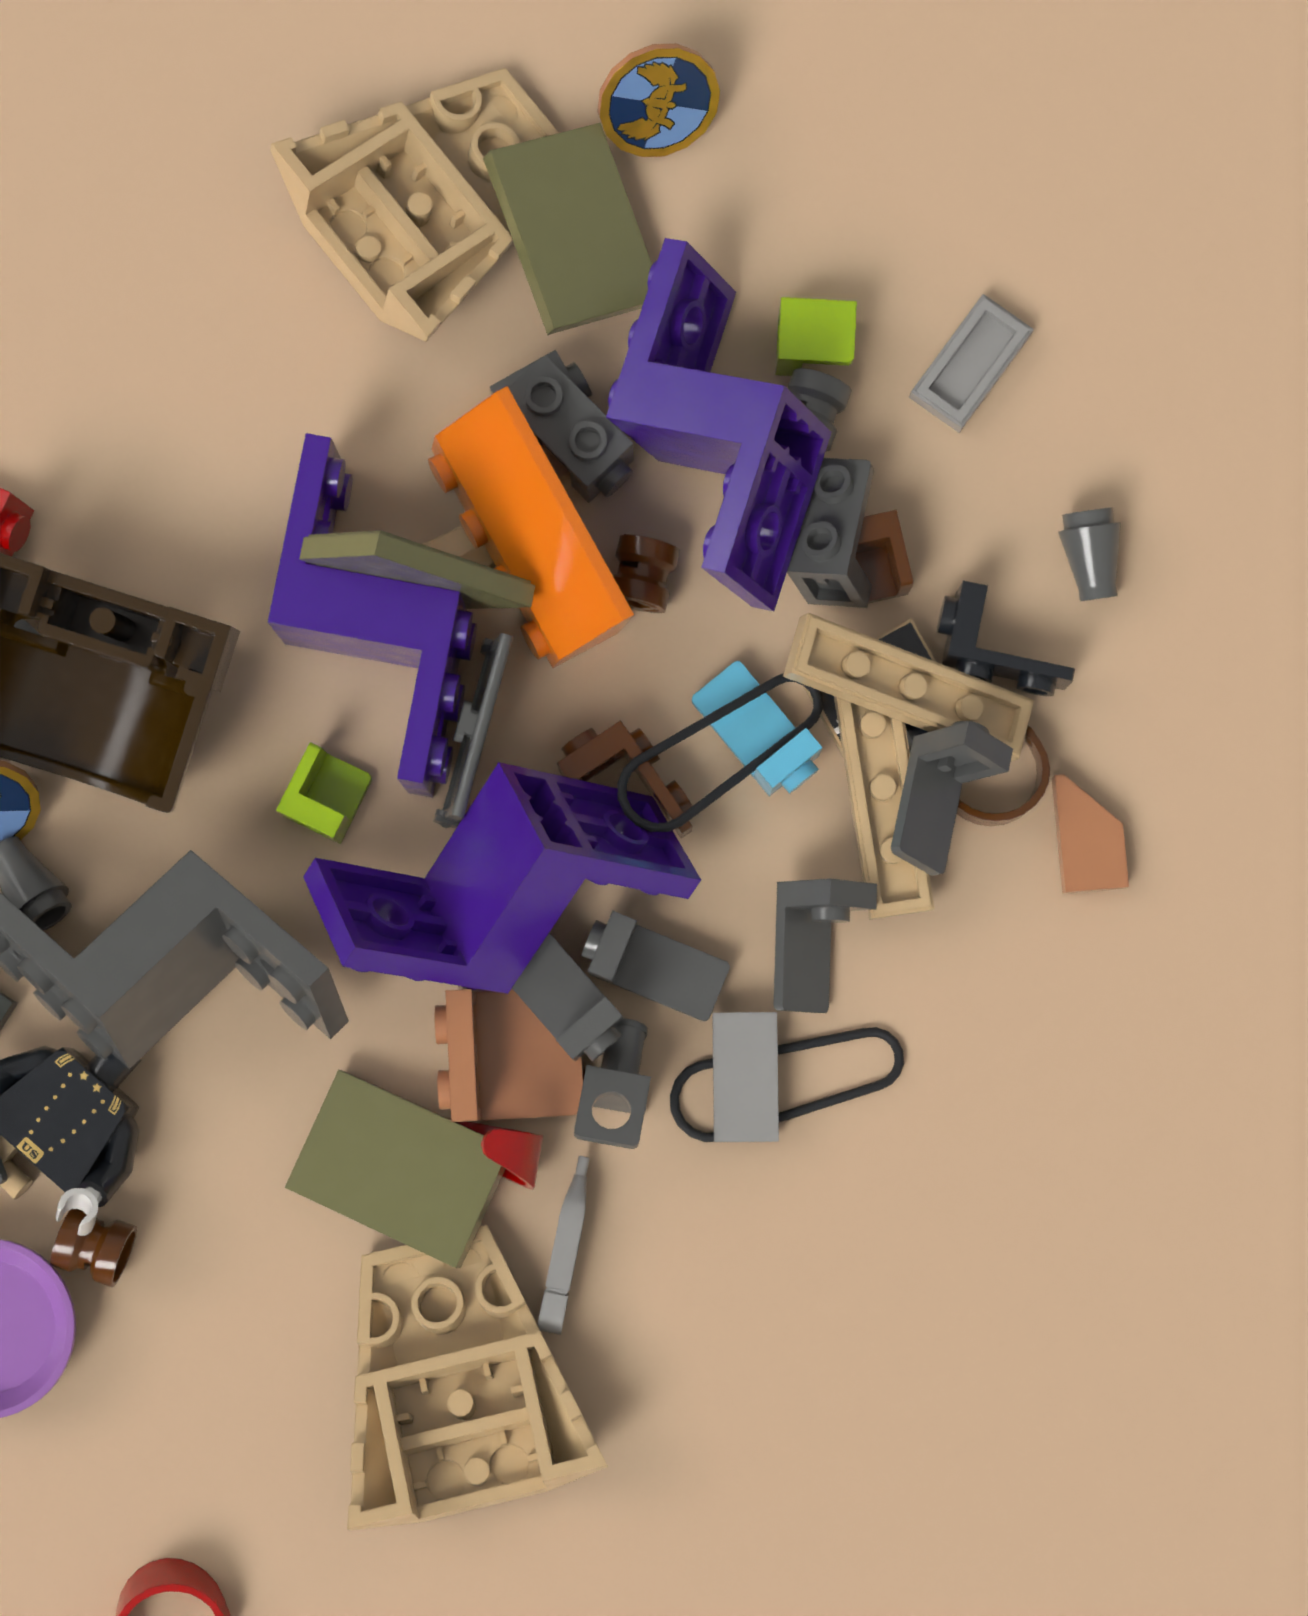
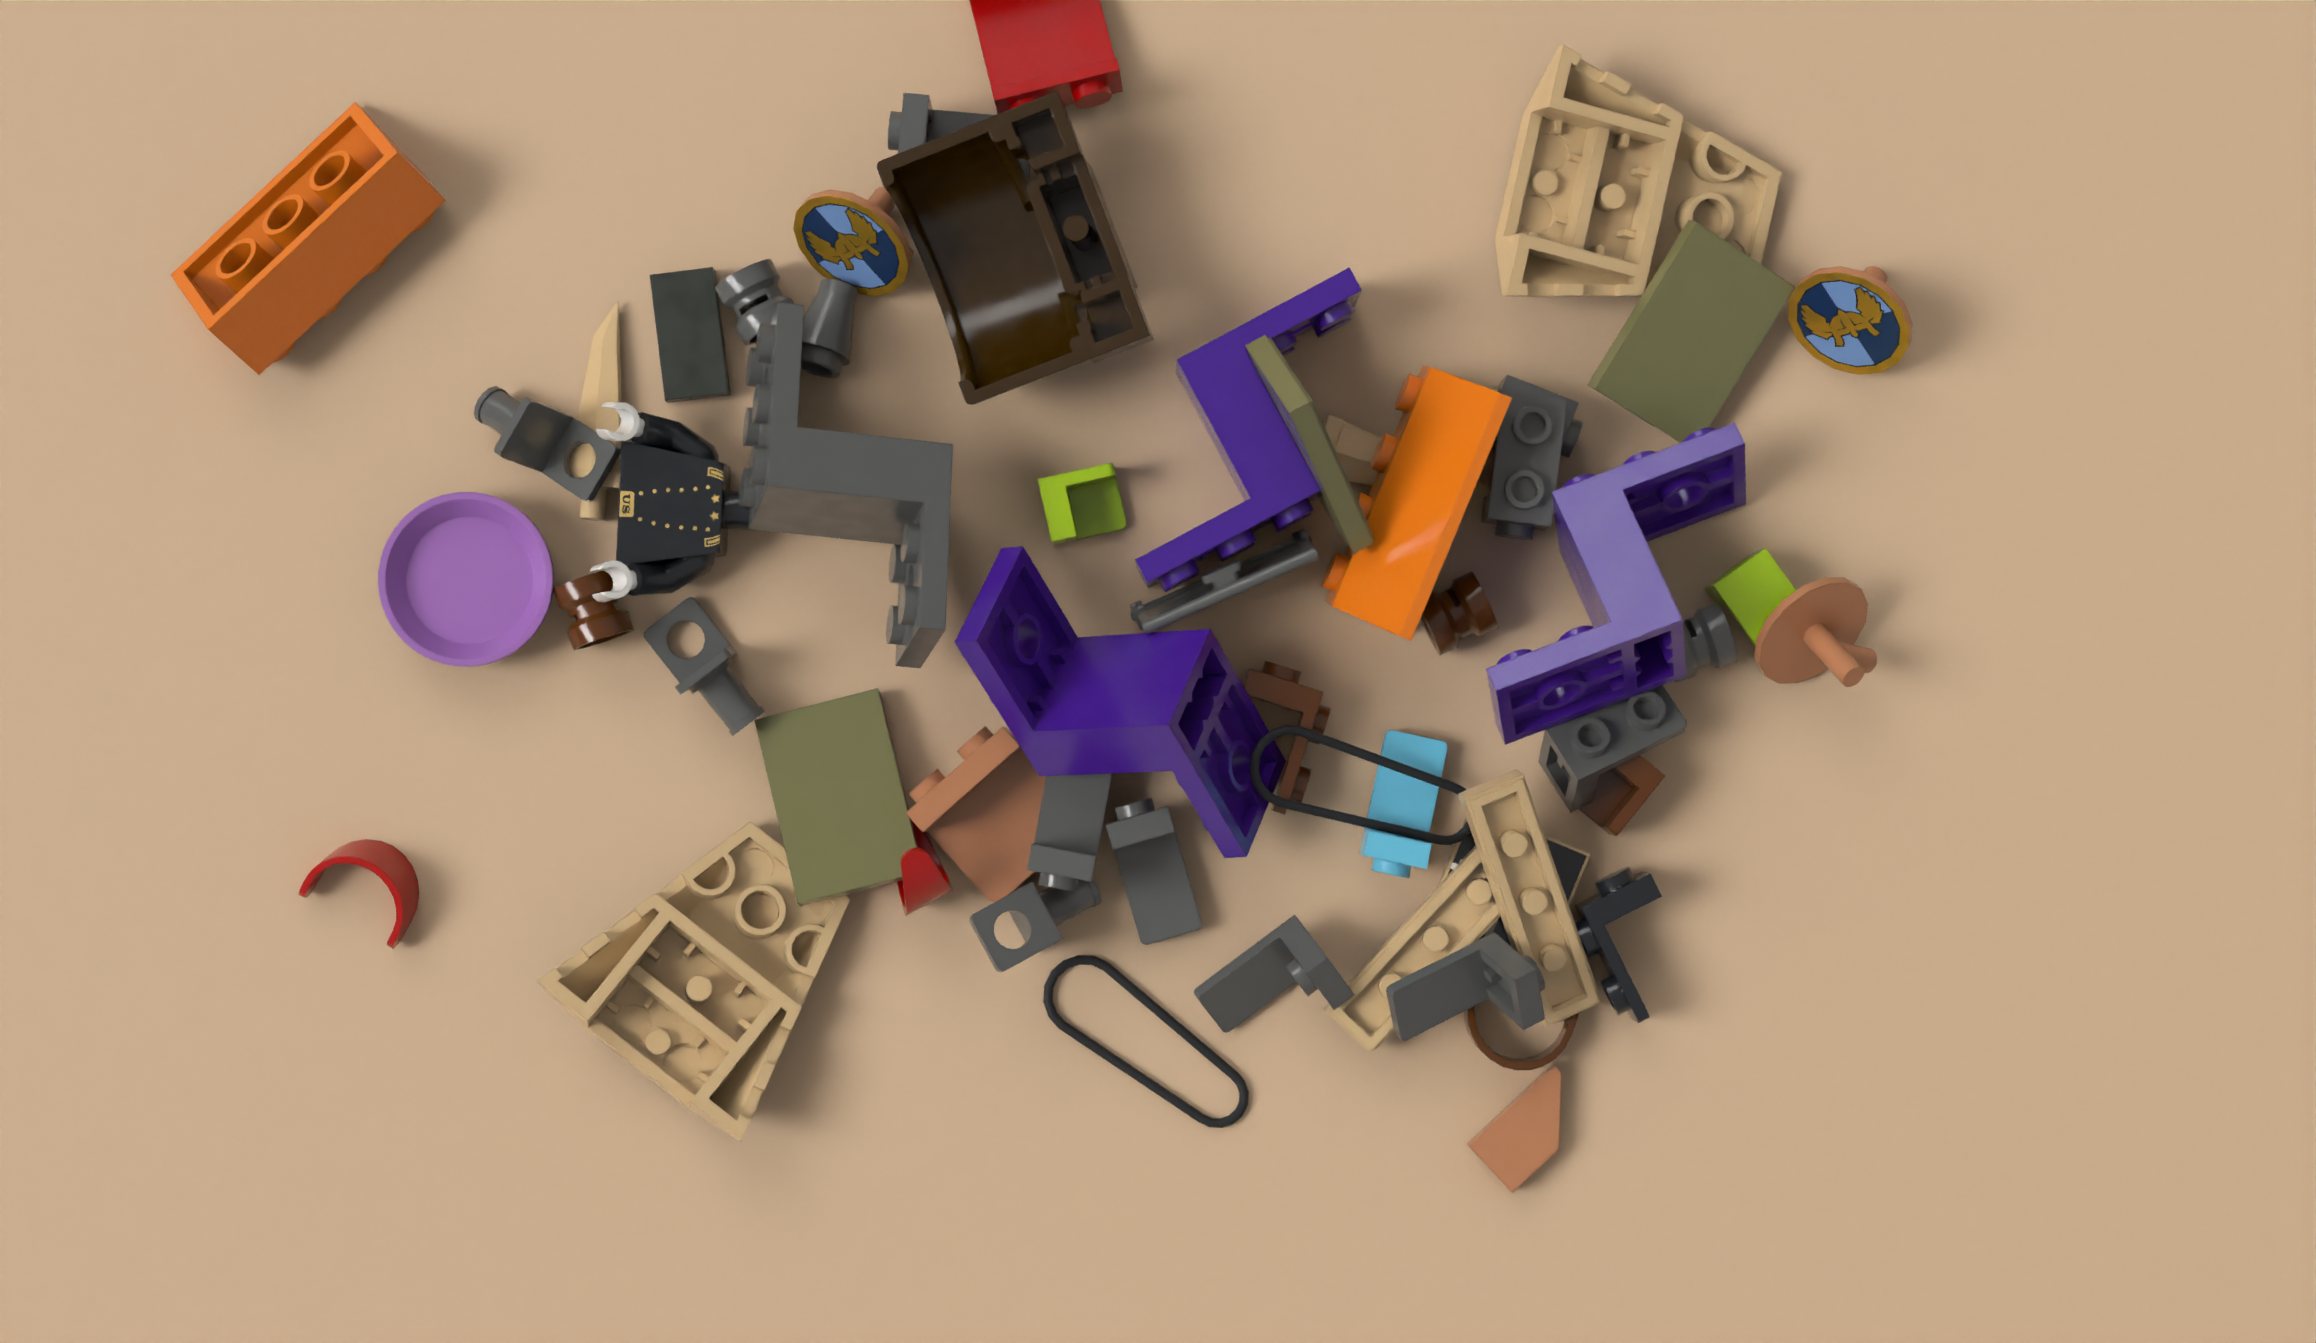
camera: 55 degrees right, 5 degrees up
(216, 1193) = (708, 670): none -> dark grey bracket
(564, 1252) = (877, 976): light grey piece -> none
(745, 1077) = (1123, 1009): light grey tile -> none
(876, 312) = (1816, 633): none -> nougat shield
(971, 363) = (1838, 738): light grey tile -> none
(1092, 551) = (1760, 954): dark grey cone -> none

